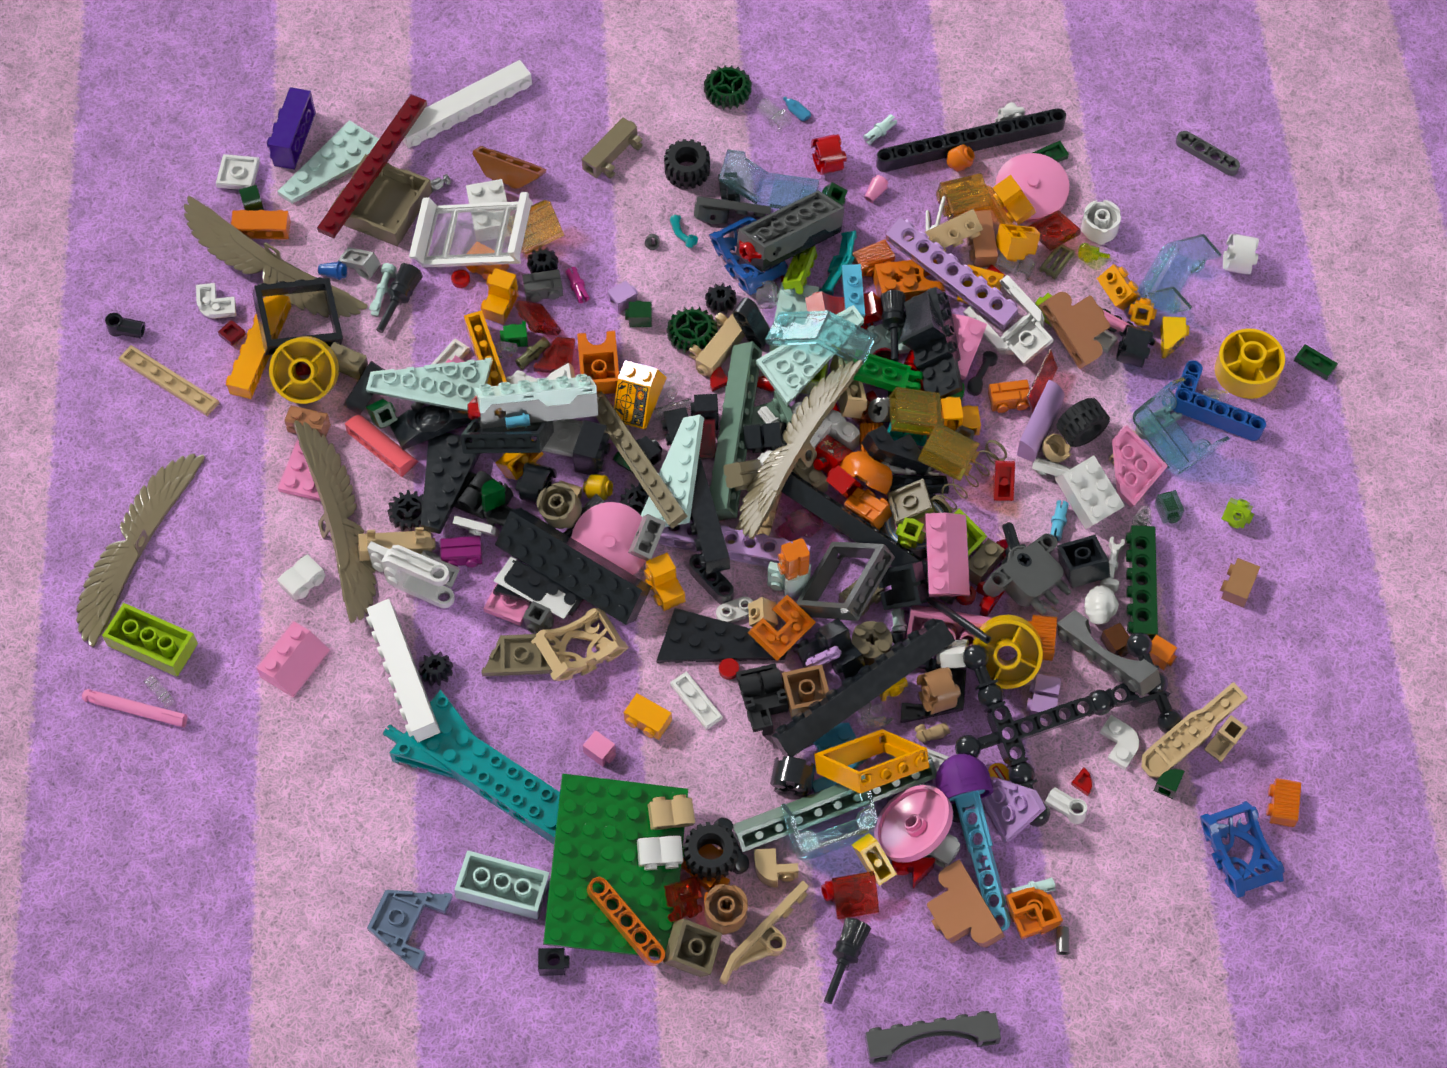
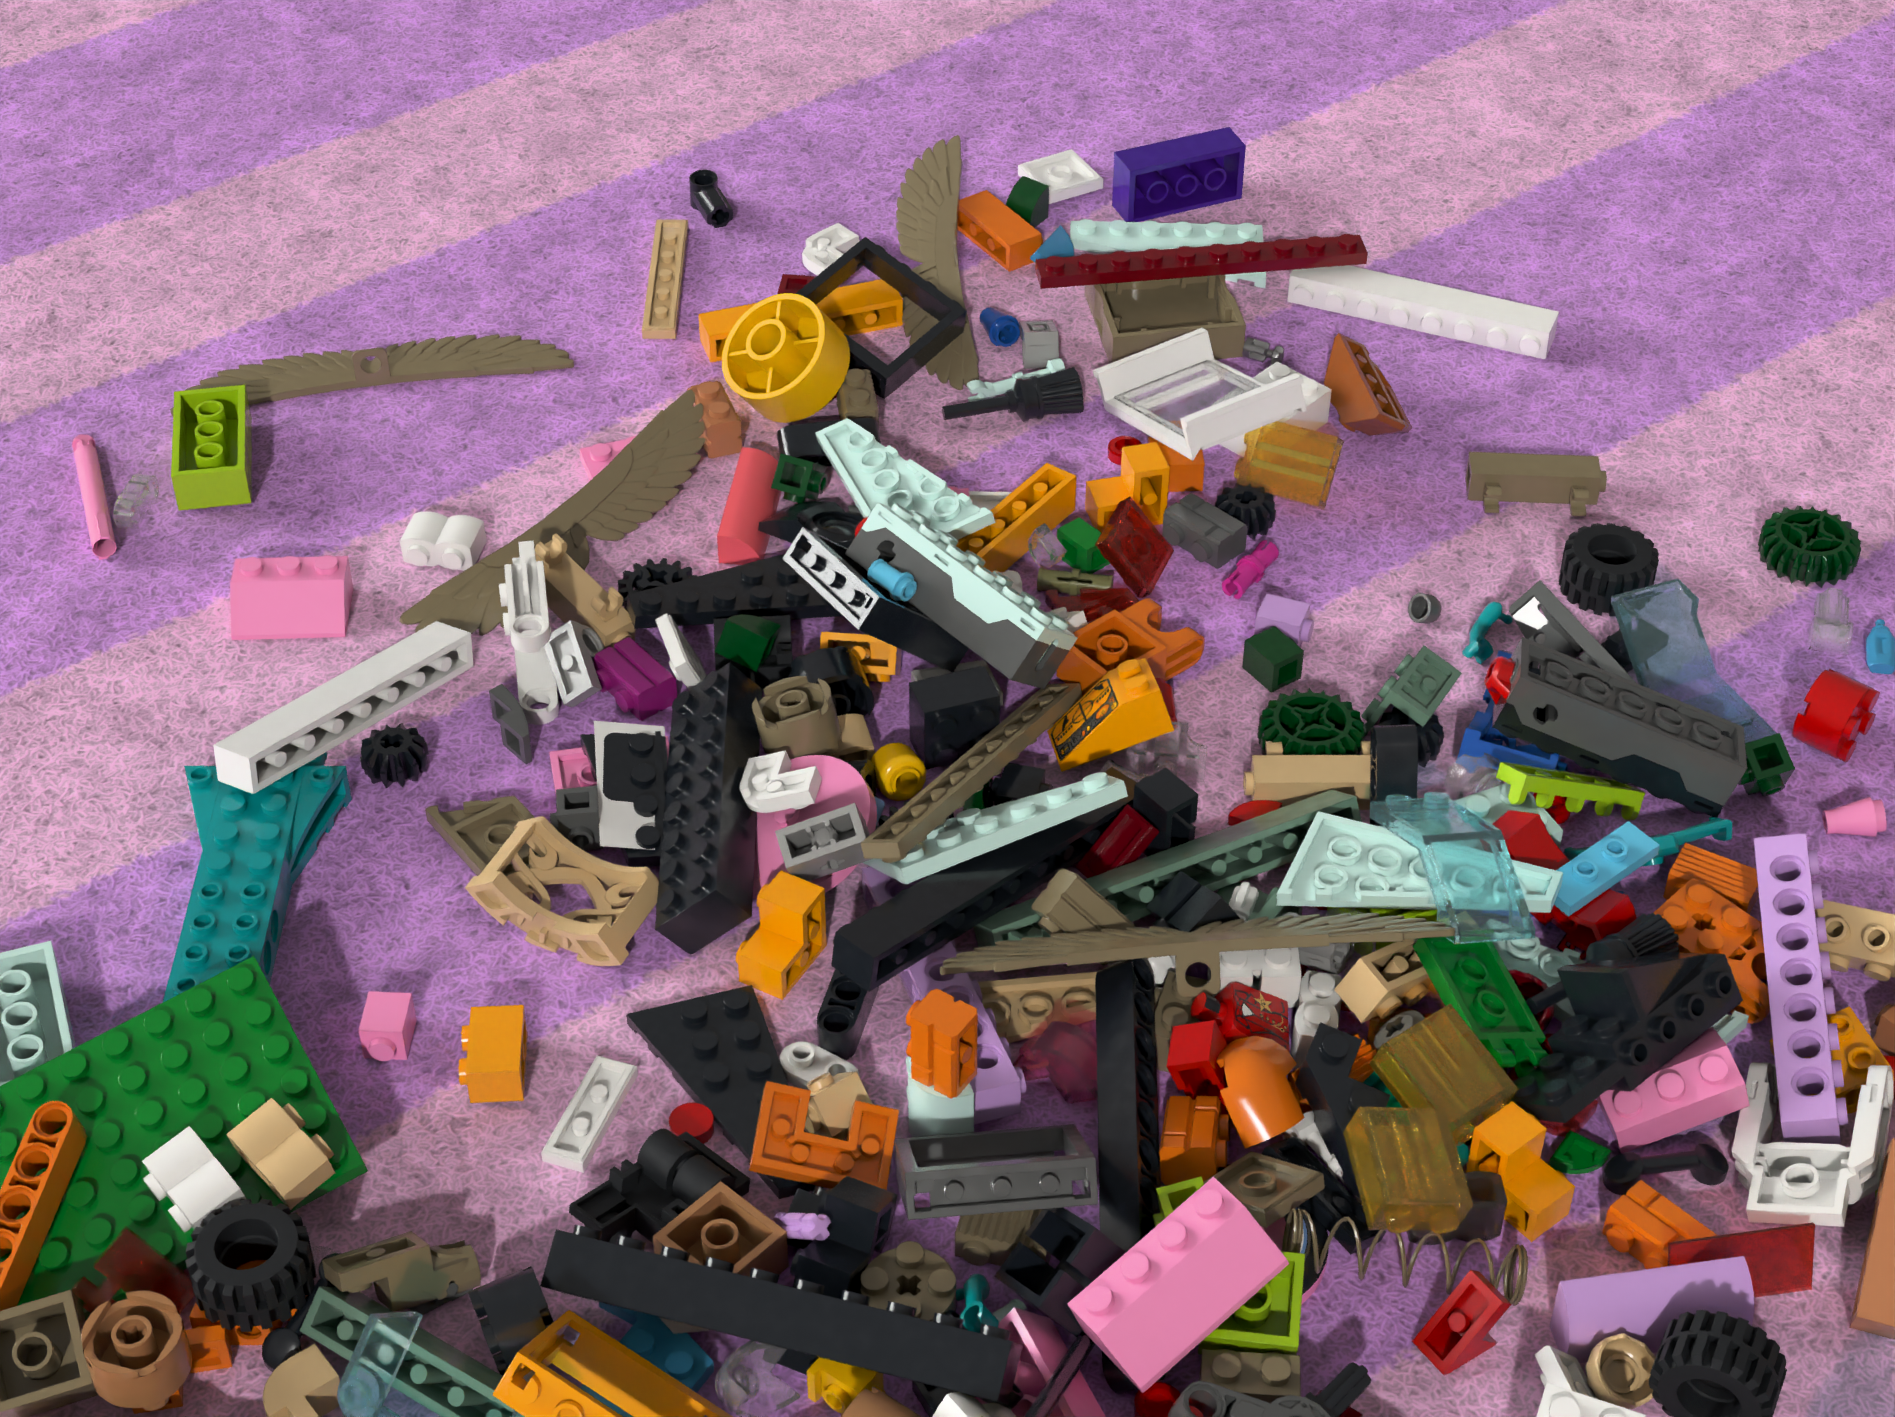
camera: 55 degrees right, 20 degrees down
(296, 212) = (1055, 245): none -> dark azure tile
(459, 613) = (512, 721): none -> dark grey slope
(597, 540) = (772, 788): none -> white plate
(703, 281) = (1418, 690): none -> sand green bracket
(741, 802) = (407, 1272): none -> dark tan plate
(892, 622) = (975, 1291): none -> teal piece

